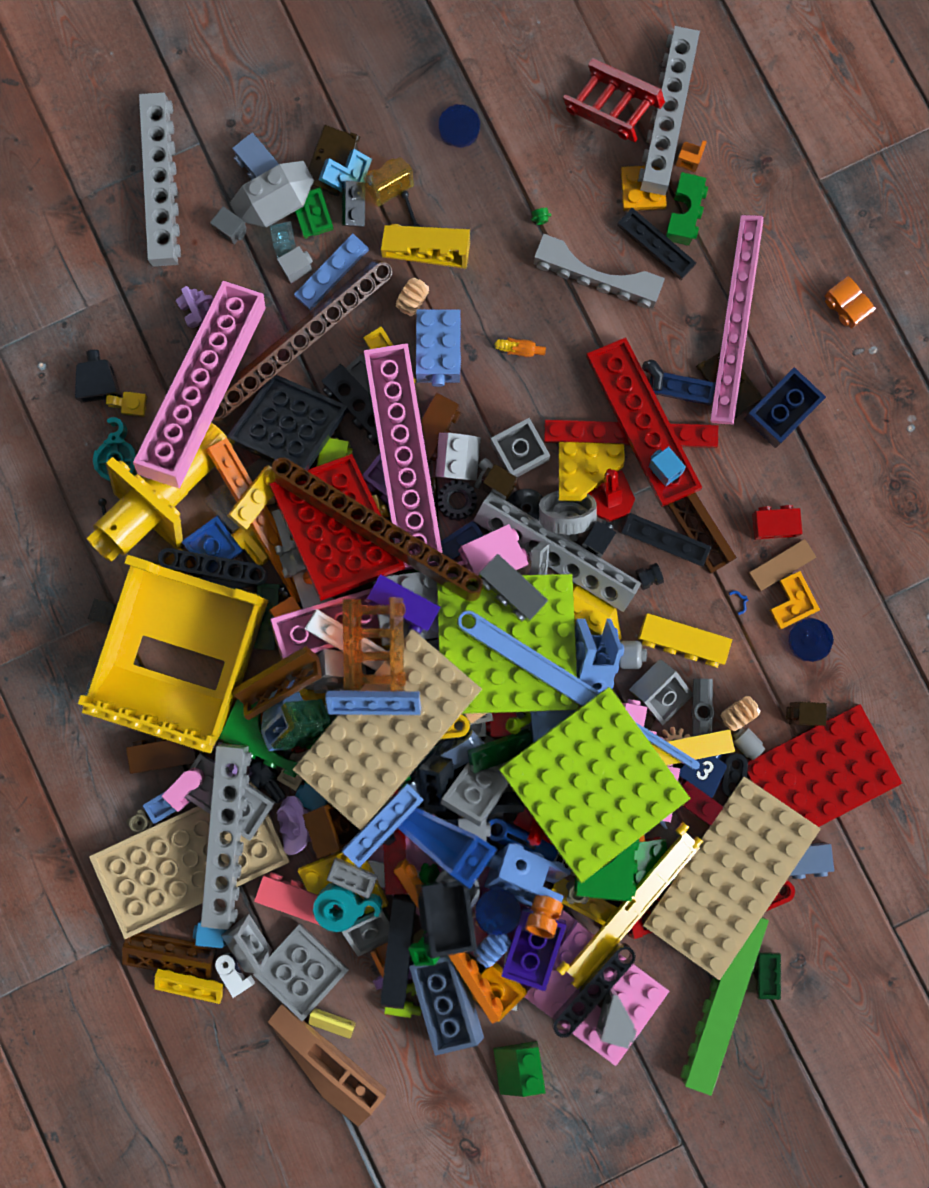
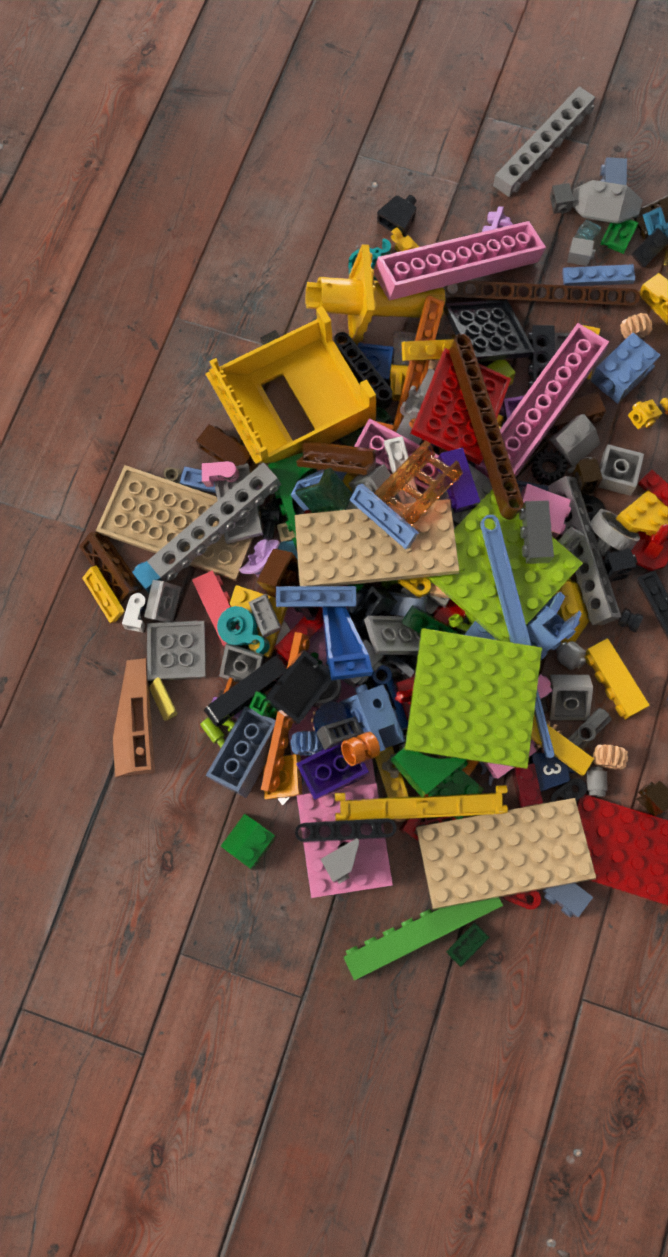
camera: 45 degrees right, 10 degrees down
(494, 374) = (644, 414): none -> yellow brick
(508, 932) = (328, 738): none -> dark grey slope

